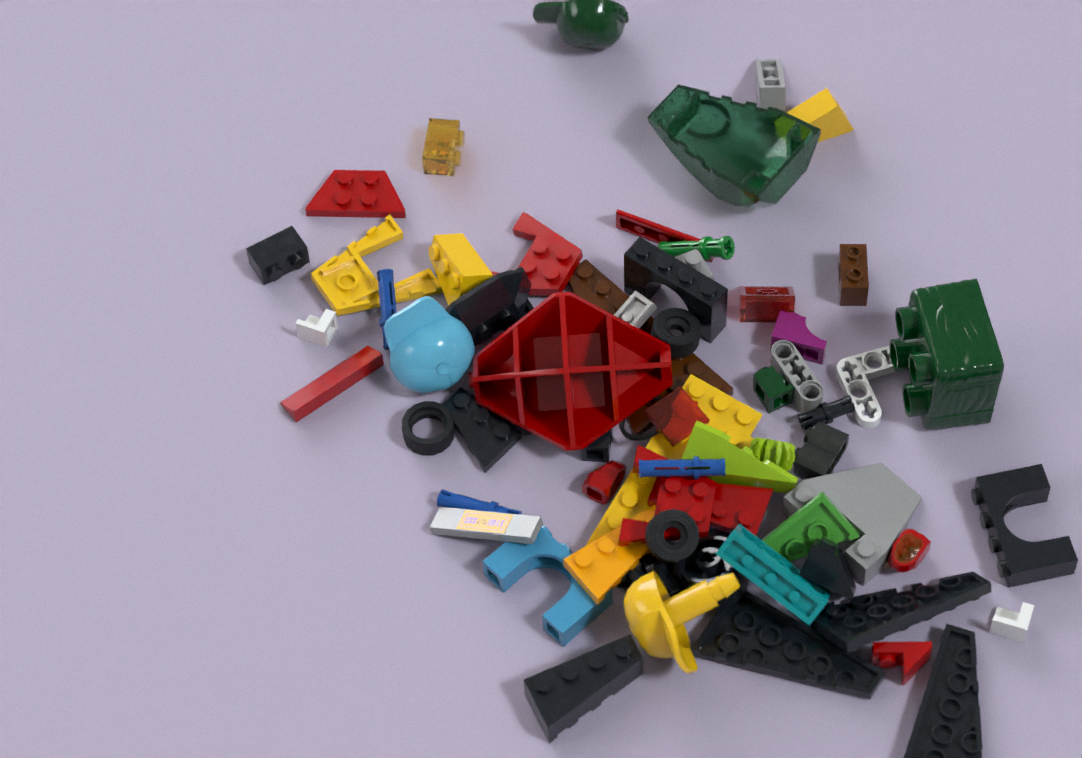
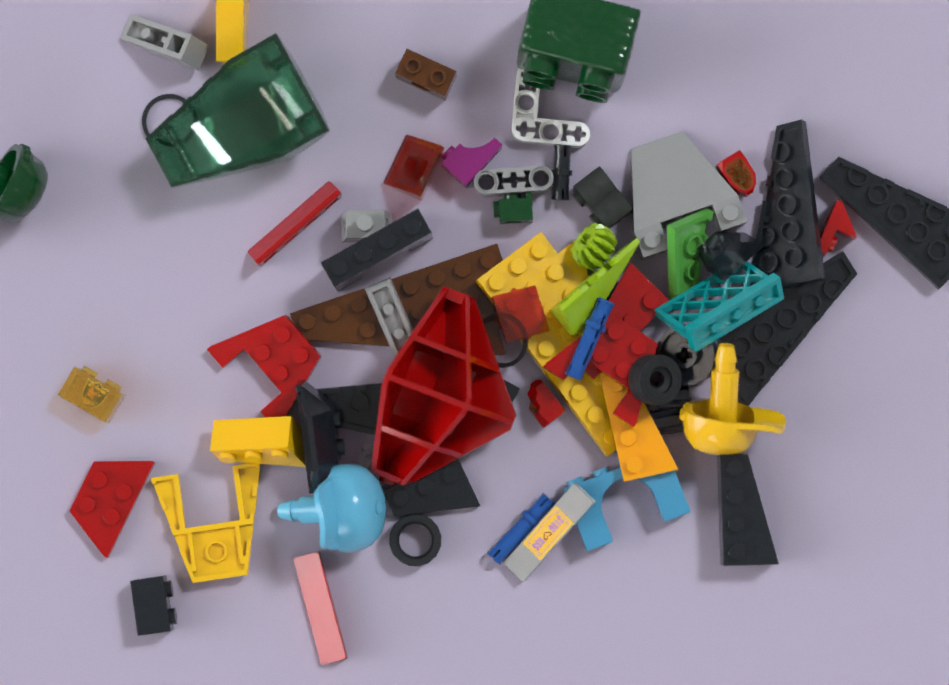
camera: 70 degrees left, 30 degrees up
(318, 330) = (253, 598): white panel -> none
(386, 298) = (279, 528): blue pin -> none
(679, 320) = (422, 255): black tyre -> none
(707, 246) = (344, 199): green pin -> none
(1011, 623) = (839, 118): white panel -> none
(1018, 559) = (717, 69): black arch -> none

